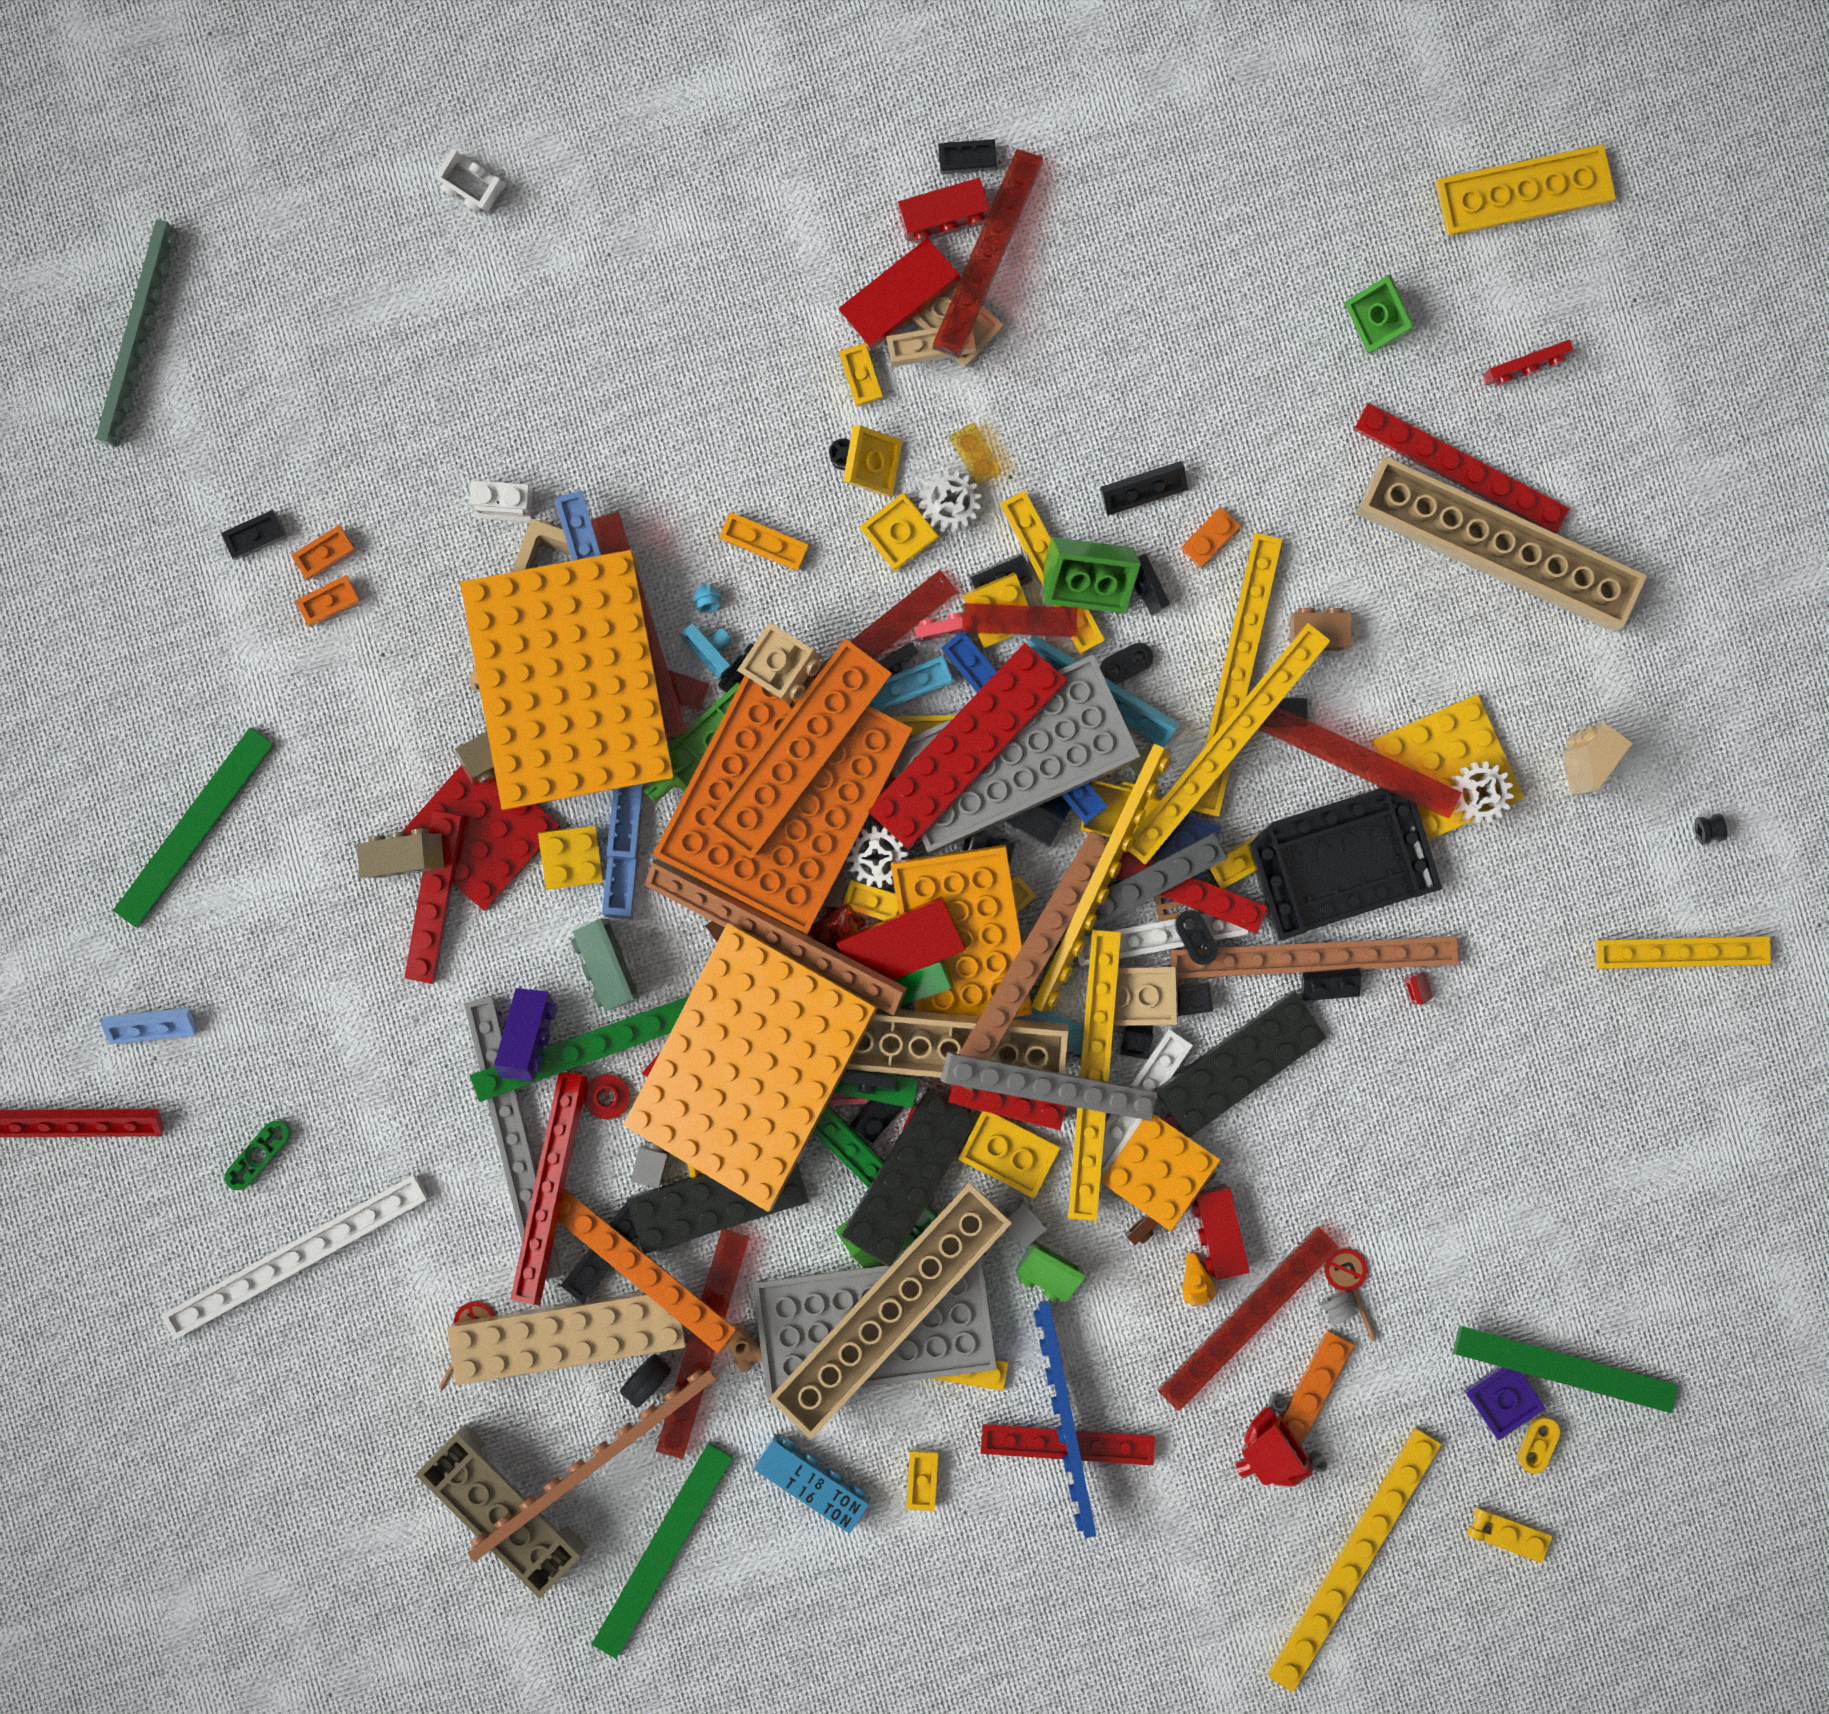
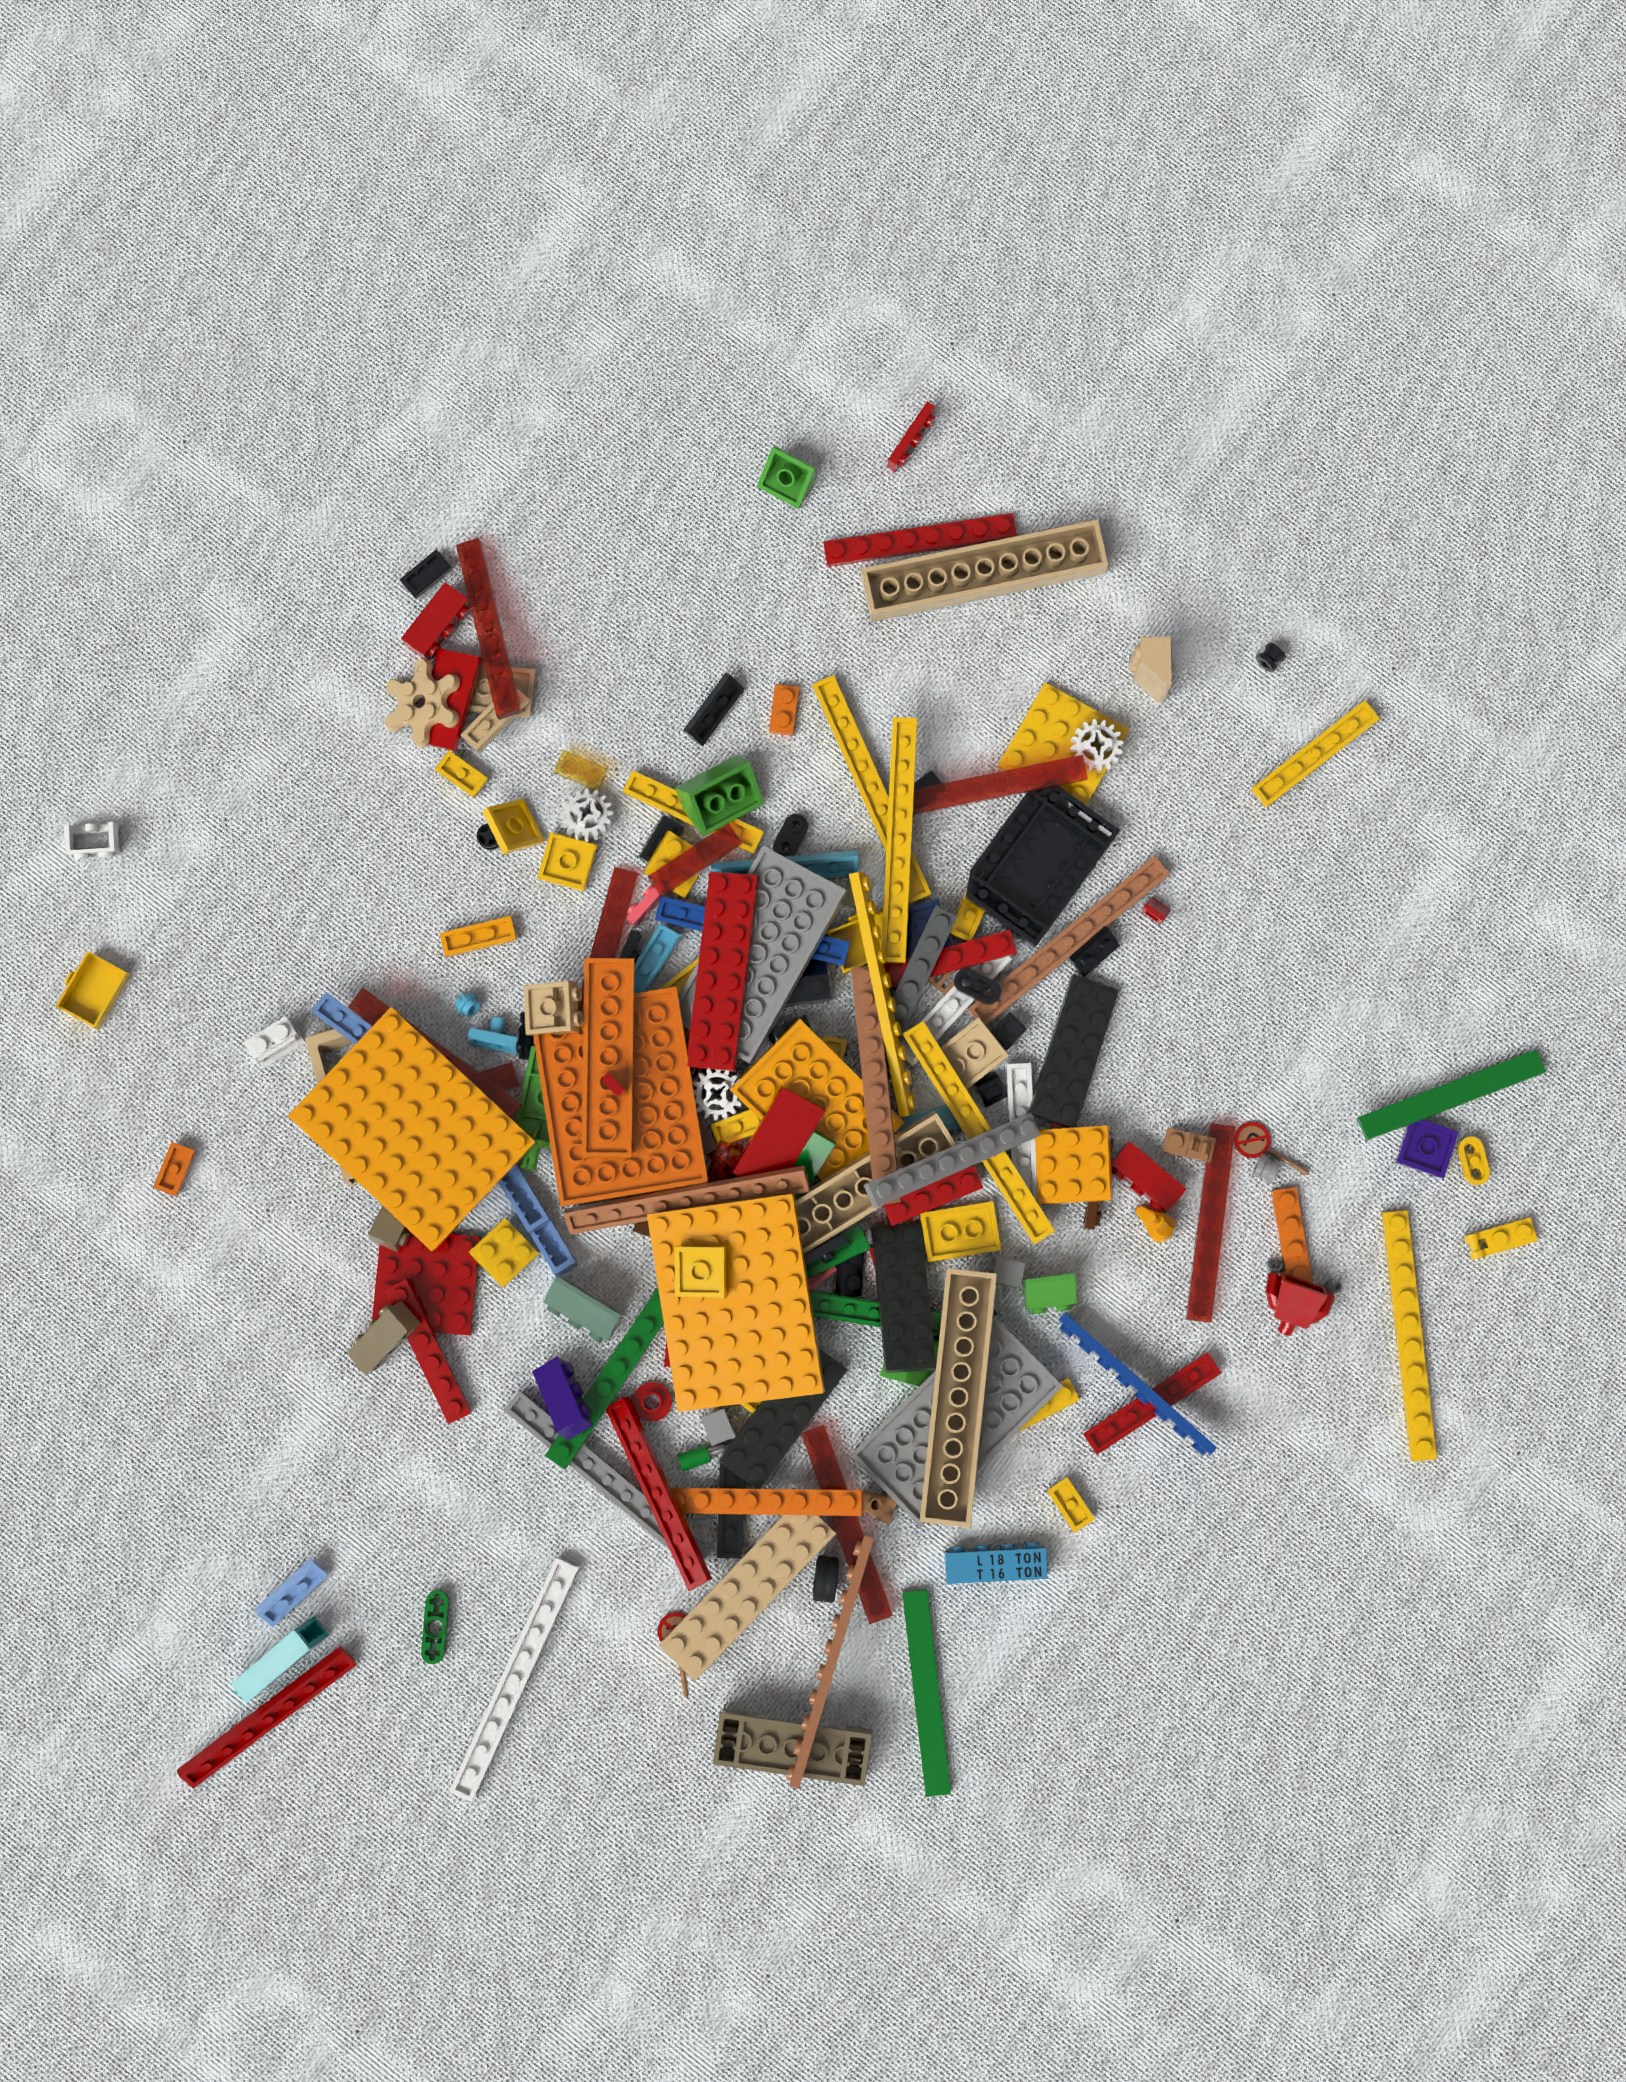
camera: 35 degrees left, 5 degrees down
(94, 1080) = (279, 1659): none -> slope
(193, 827) = (221, 1429): green tile -> none
(254, 535) = (116, 1193): black plate -> none
(328, 601) = (202, 1200): orange plate -> none
(368, 326) = (92, 990): none -> yellow container
(612, 1179) = (698, 1456): none -> green piece
(736, 1015) = (700, 1271): none -> yellow plate
(783, 780) = (613, 1085): none -> red tile
(881, 293) = (435, 708): none -> tan plate
(1149, 587) = (768, 773): black plate -> none
(1283, 1232) = (1189, 1145): none -> medium nougat plate
(1332, 624) = (909, 707): medium nougat brick -> none
(1525, 190) = (823, 324): yellow plate -> none

